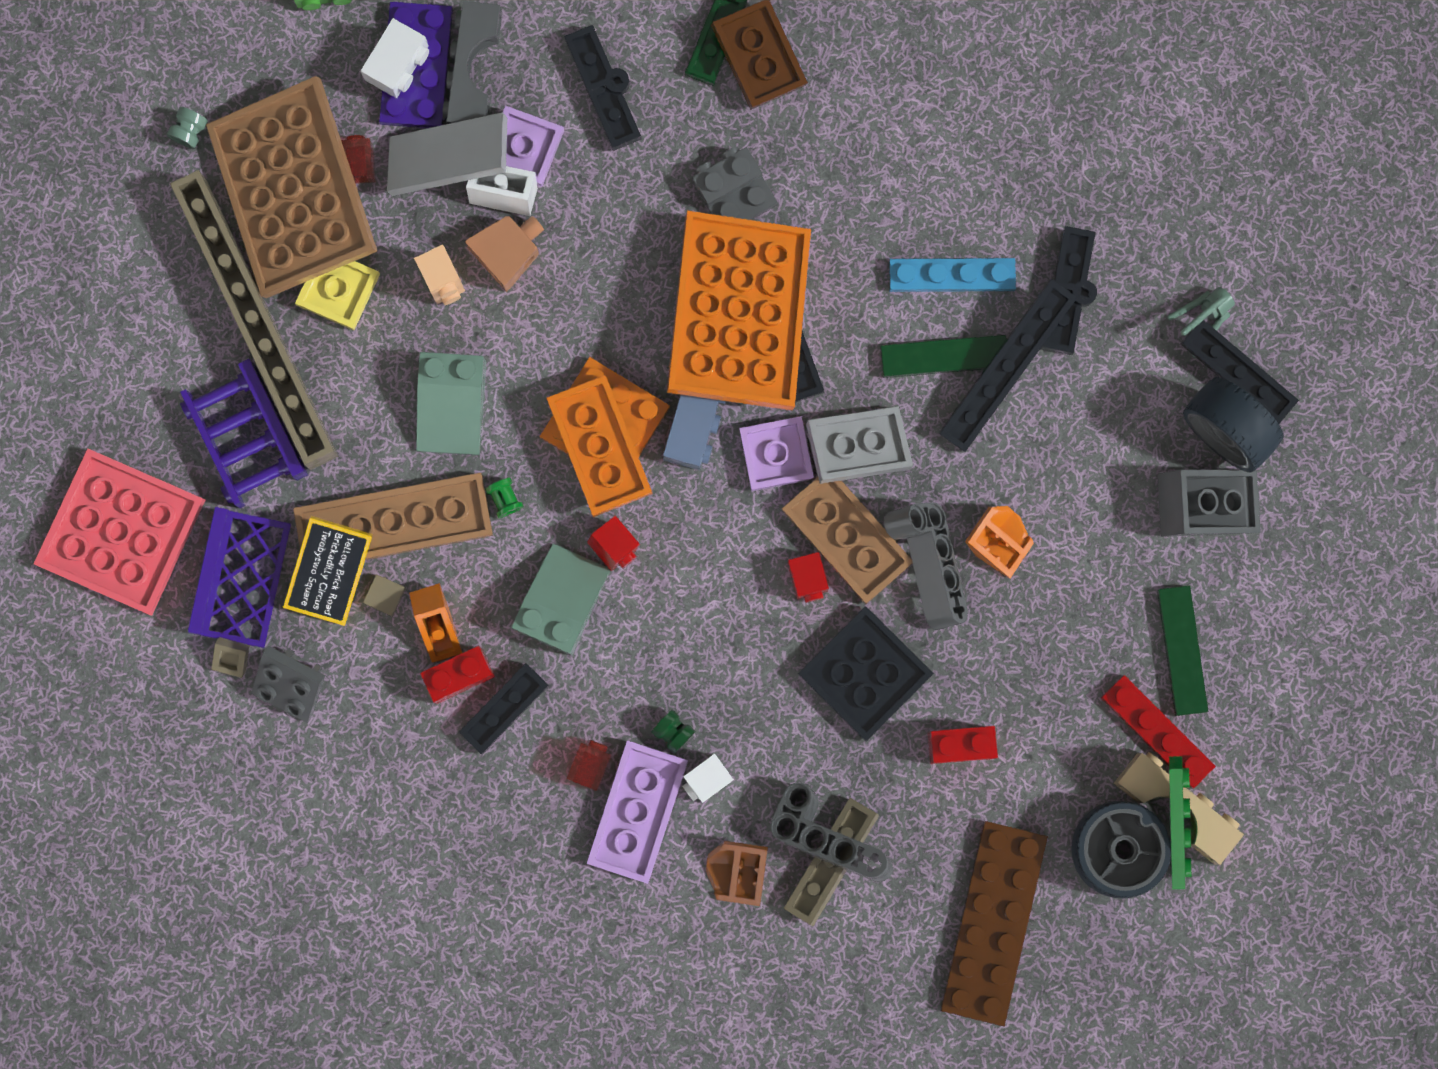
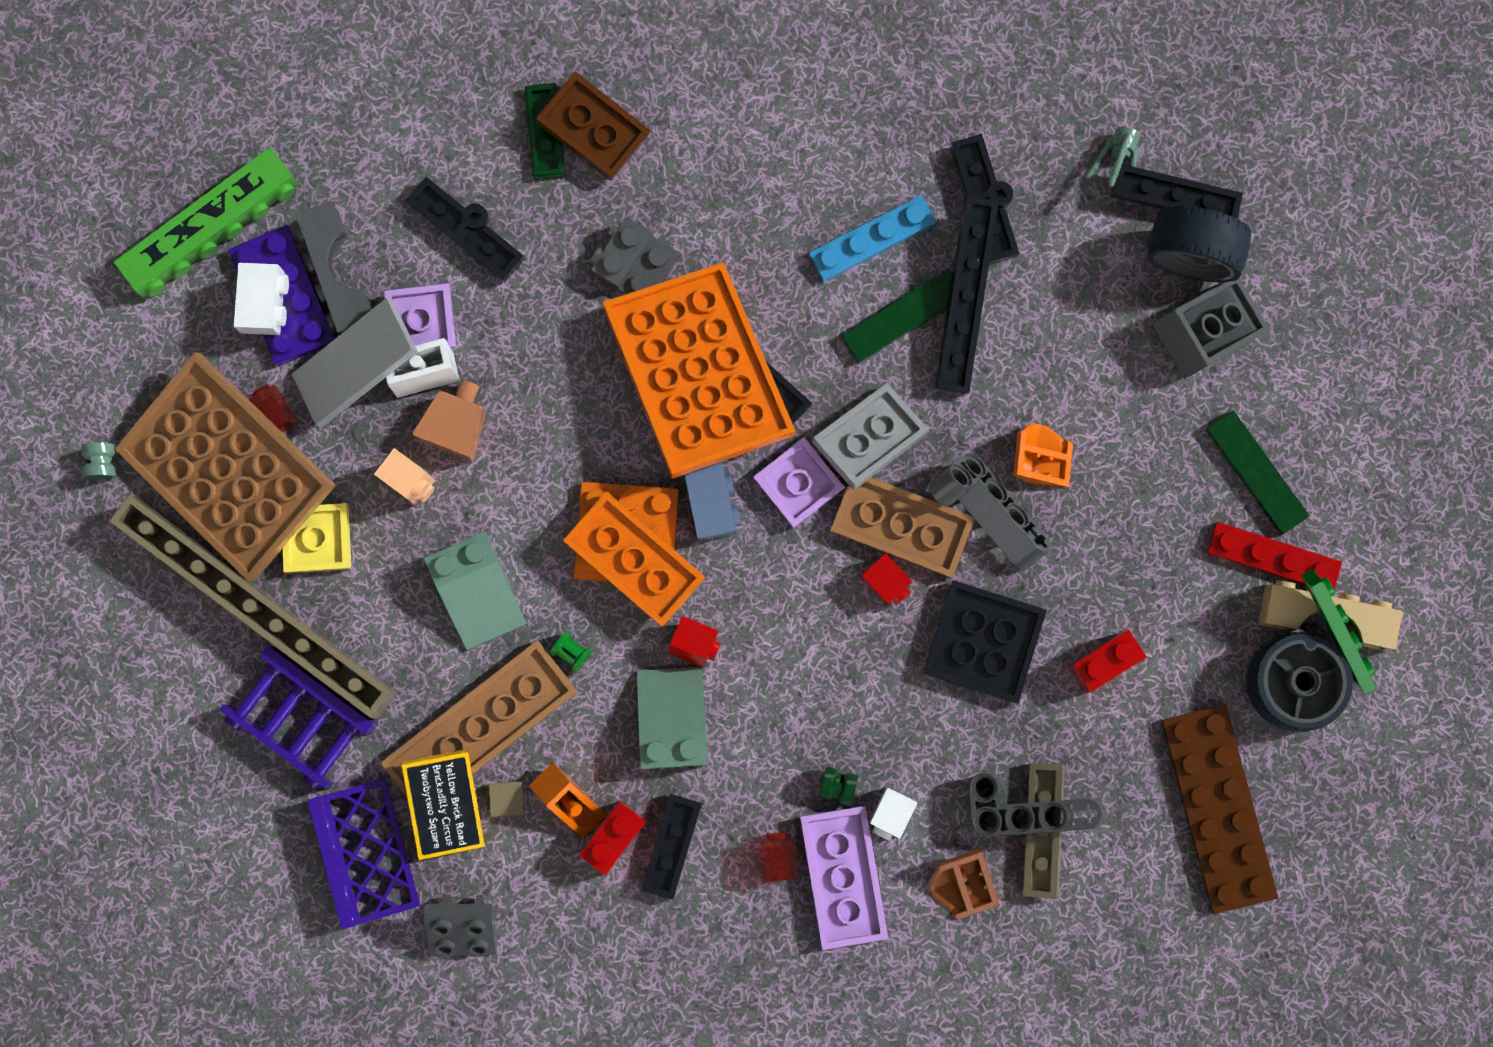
camera: 25 degrees left, 0 degrees up
(119, 532) = (229, 869): coral plate -> none
(230, 657) = (393, 931): dark tan tile -> none

